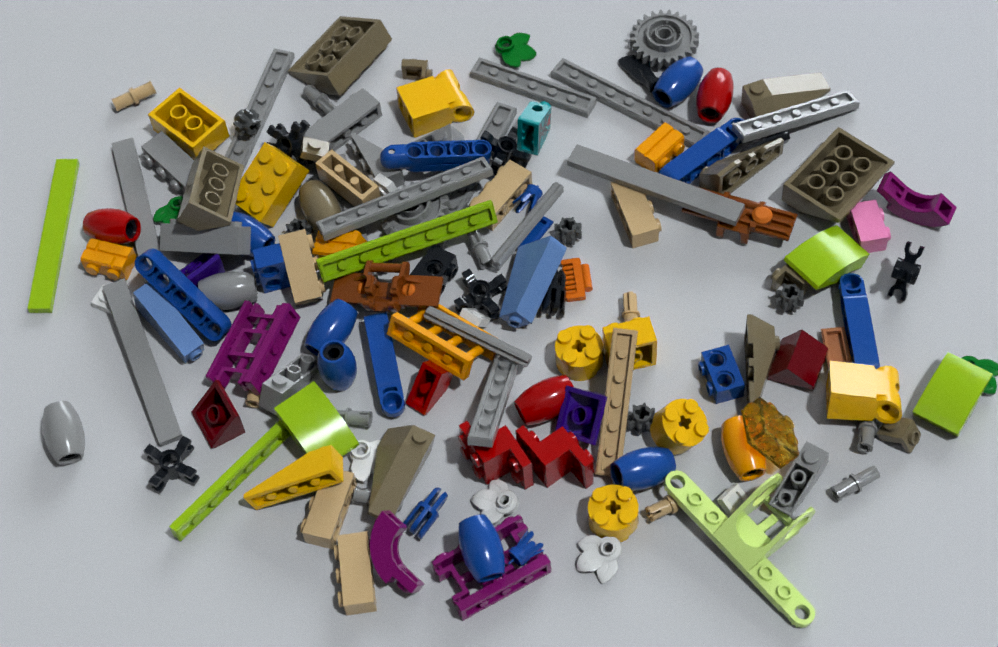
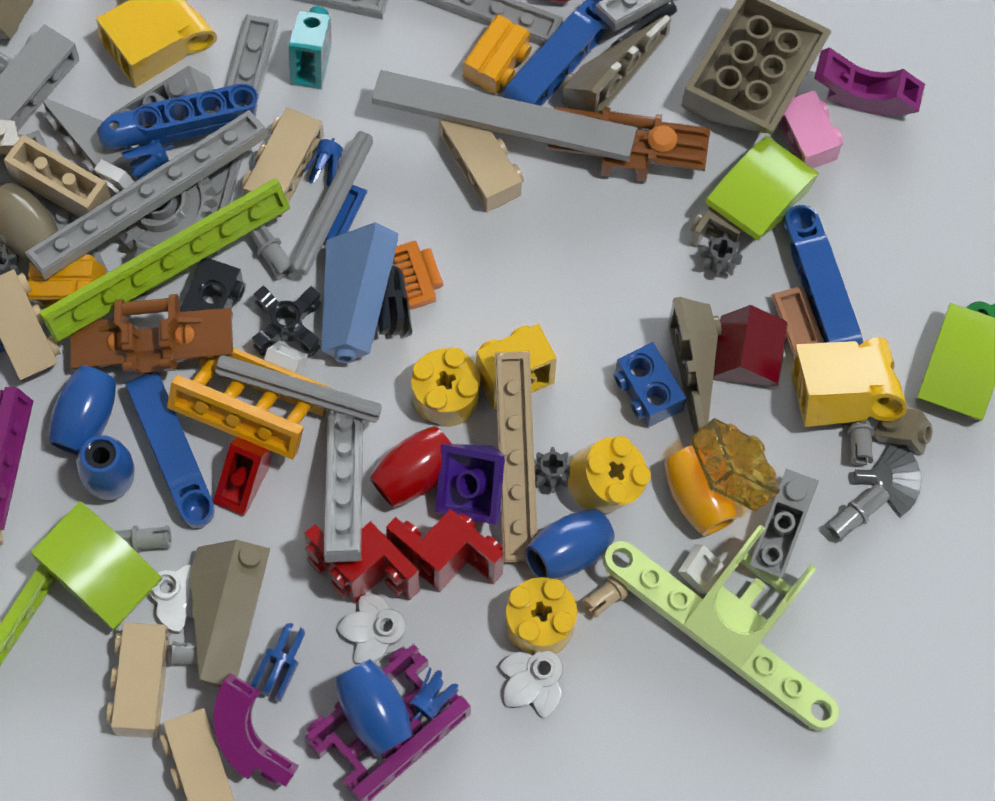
camera: 20 degrees left, 10 degrees up
(288, 381) = (38, 502): light grey slope -> none
(305, 475) = (98, 642): yellow slope -> none
(415, 176) = (150, 157): none -> blue piece
(505, 149) = (277, 91): black pin -> none
(568, 231) = (391, 203): dark grey gear -> none
(630, 306) = (503, 307): tan axle -> none
(890, 464) = (898, 475): none -> dark grey hand
(906, 271) = (874, 192): black pin -> none

